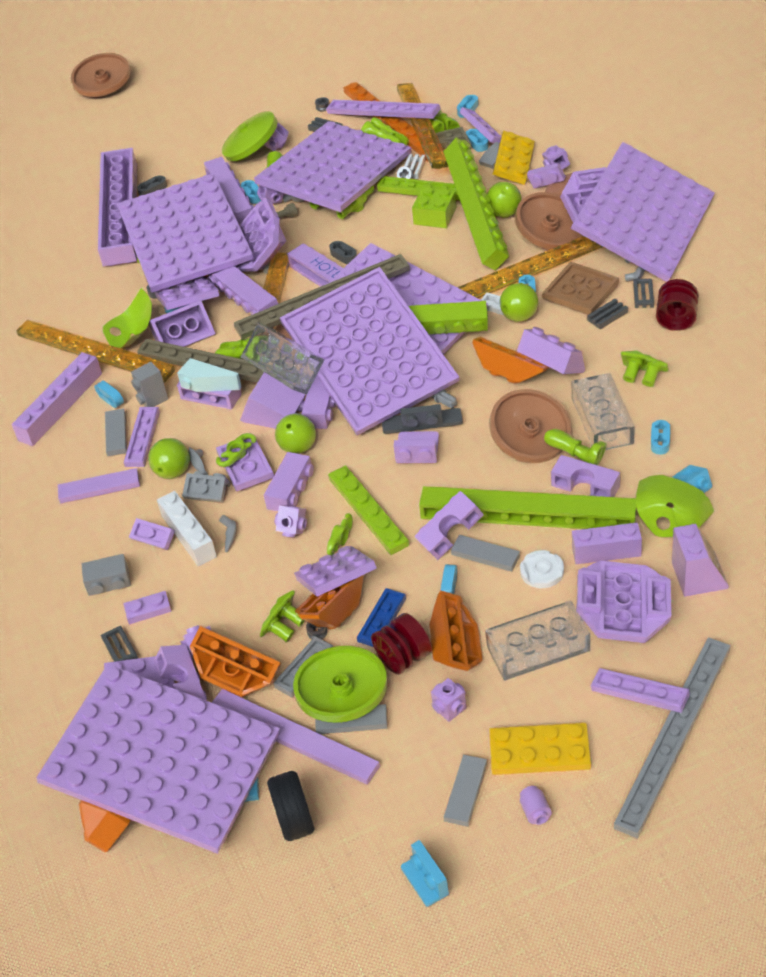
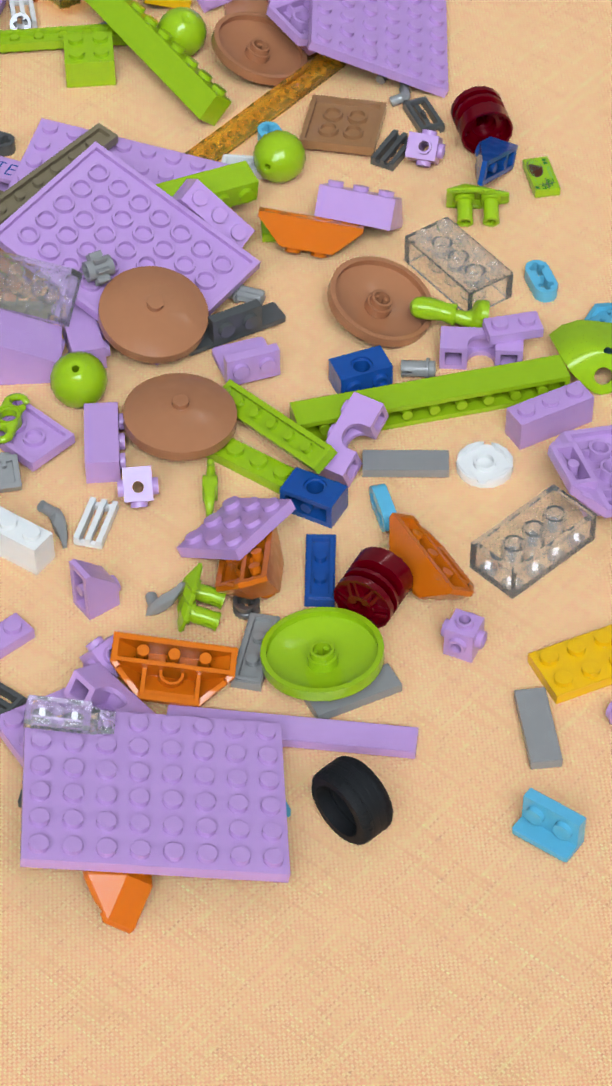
camera: 30 degrees left, 0 degrees up
(123, 681) = (67, 715): none -> clear hinge
(220, 587) = (93, 588): none -> lavender slope
(251, 538) = (101, 506): none -> white tile
(260, 610) = (166, 600): none -> light grey bar
(337, 357) = (98, 268): none -> light grey gear
(345, 477) = (179, 416): none -> nougat dish
(364, 399) = (153, 314): none -> nougat dish
(403, 502) = (280, 429): none -> lime plate
(405, 561) = (315, 497): none -> blue brick
(443, 335) = (213, 210): none -> lavender brick
(489, 474) = (360, 370): none -> blue brick
(532, 482) = (418, 368): none -> light grey pin
(610, 469) = (513, 327): none -> lavender plate
(626, 317) = (418, 142): none -> lavender brick
(670, 336) = (493, 159): none -> blue slope
(704, 357) = (541, 177): none -> lime tile

